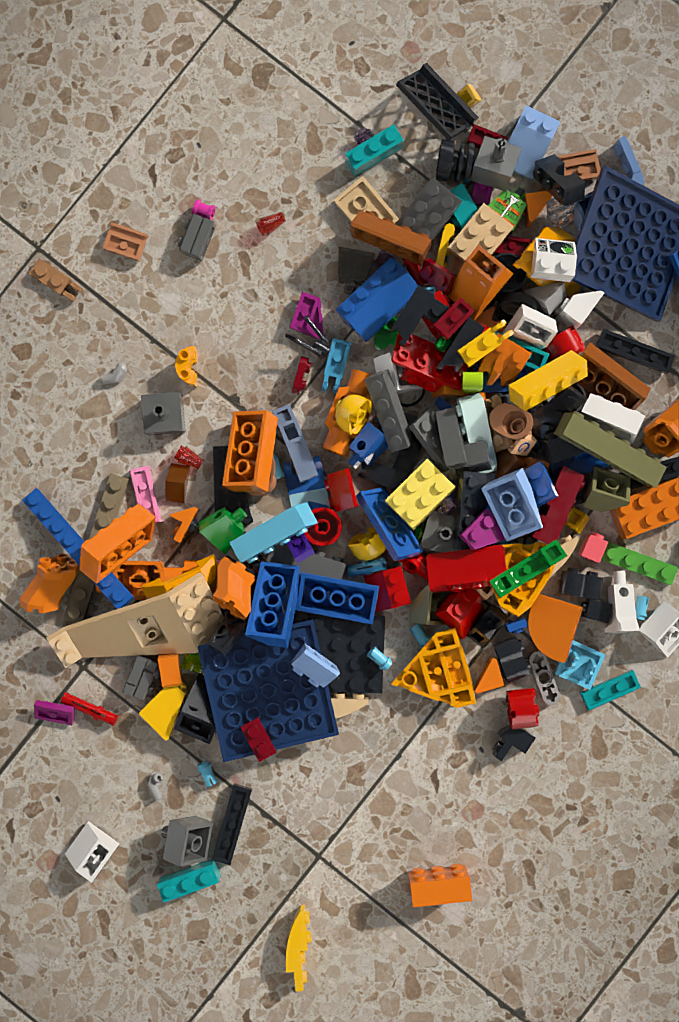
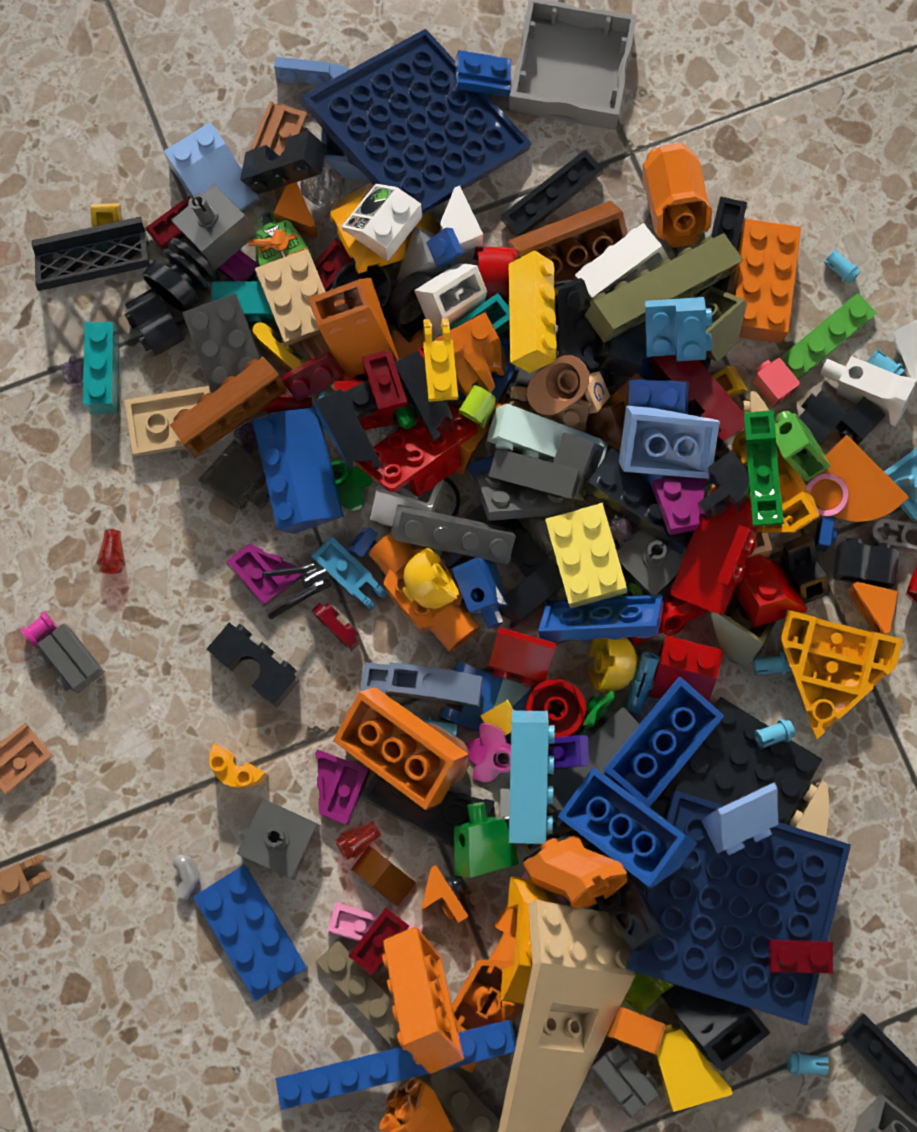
camera: 60 degrees left, 10 degrees down
(105, 428) = (250, 932): none -> blue plate
(131, 498) = (371, 947): none -> dark red plate
(212, 430) = (339, 786): none -> magenta wing
(251, 358) = (234, 646): none -> black arch
(278, 501) = (486, 753): none -> dark pink plate
(299, 496) = (500, 717): none -> yellow slope
(336, 549) = (595, 710): none -> green plate
(358, 362) = (363, 542): none -> blue plate
(419, 164) = (154, 322): none -> black brick
(506, 557) = (732, 487): none -> black brick
(509, 207) = (278, 242): none -> orange hand
(550, 615) = (844, 489): none -> bright pink piece
(557, 582) = (793, 437): none -> bright green torso
(559, 306) = (444, 247): none -> blue plate
(587, 472) = (678, 328): none -> dark azure plate

